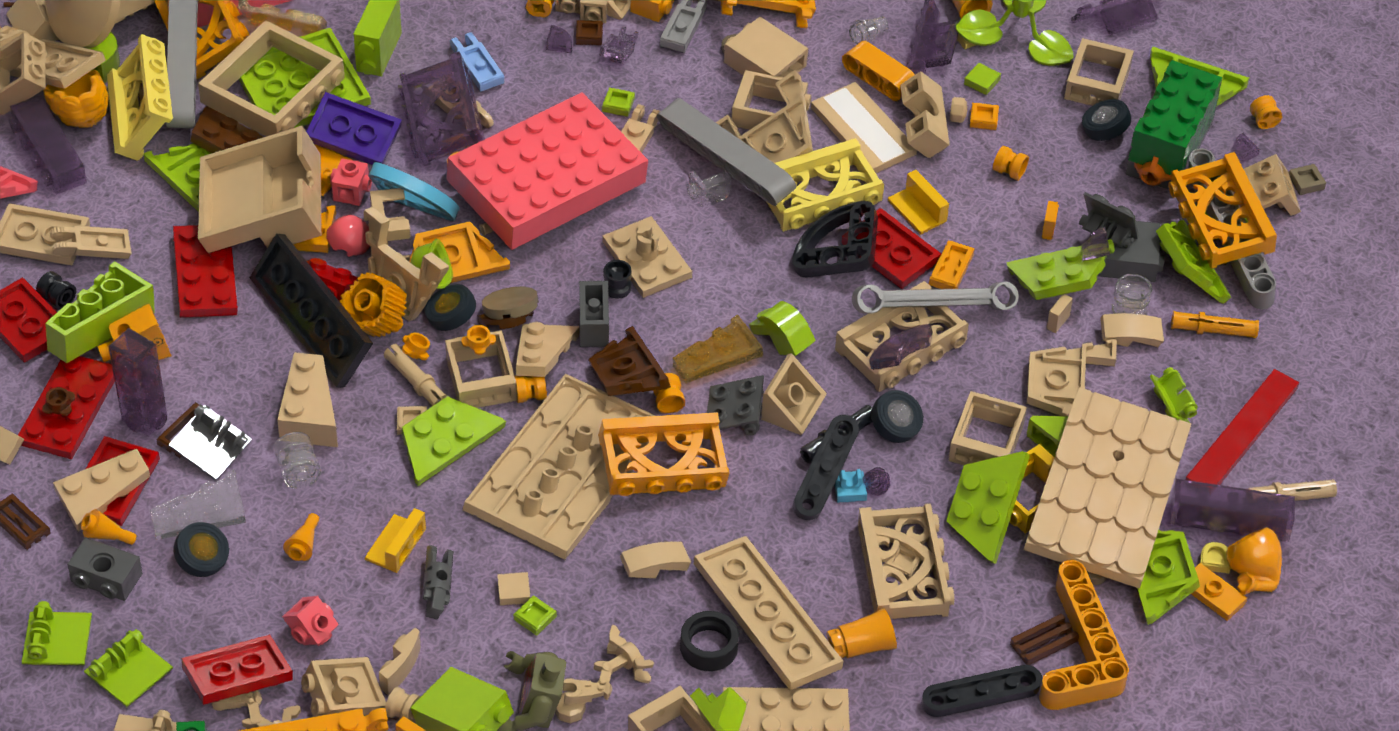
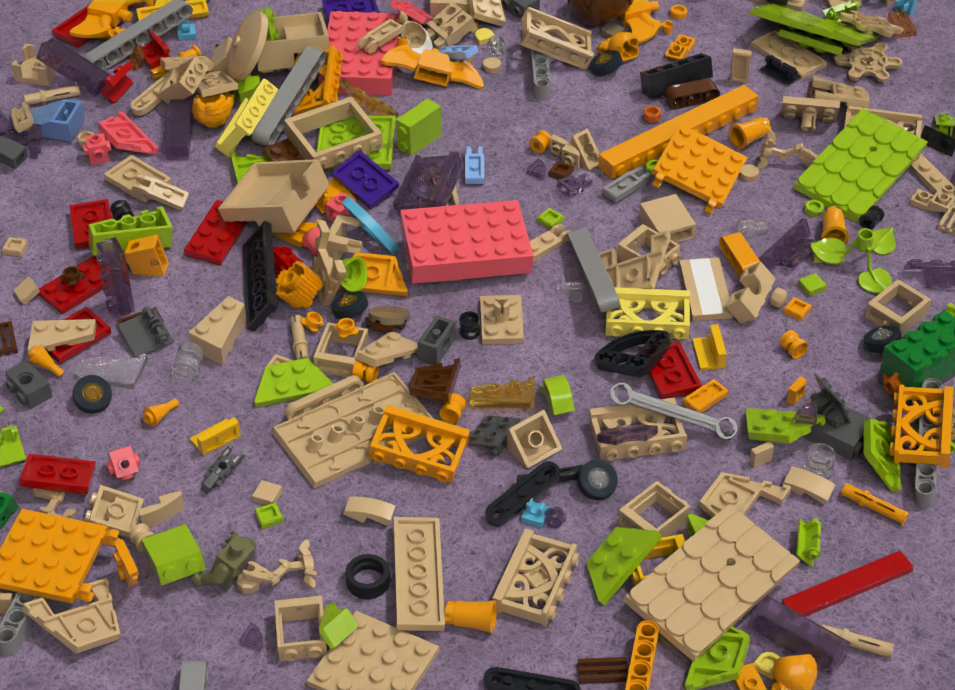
camera: 30 degrees right, 5 degrees down
(505, 434) = (322, 396): none -> tan plate

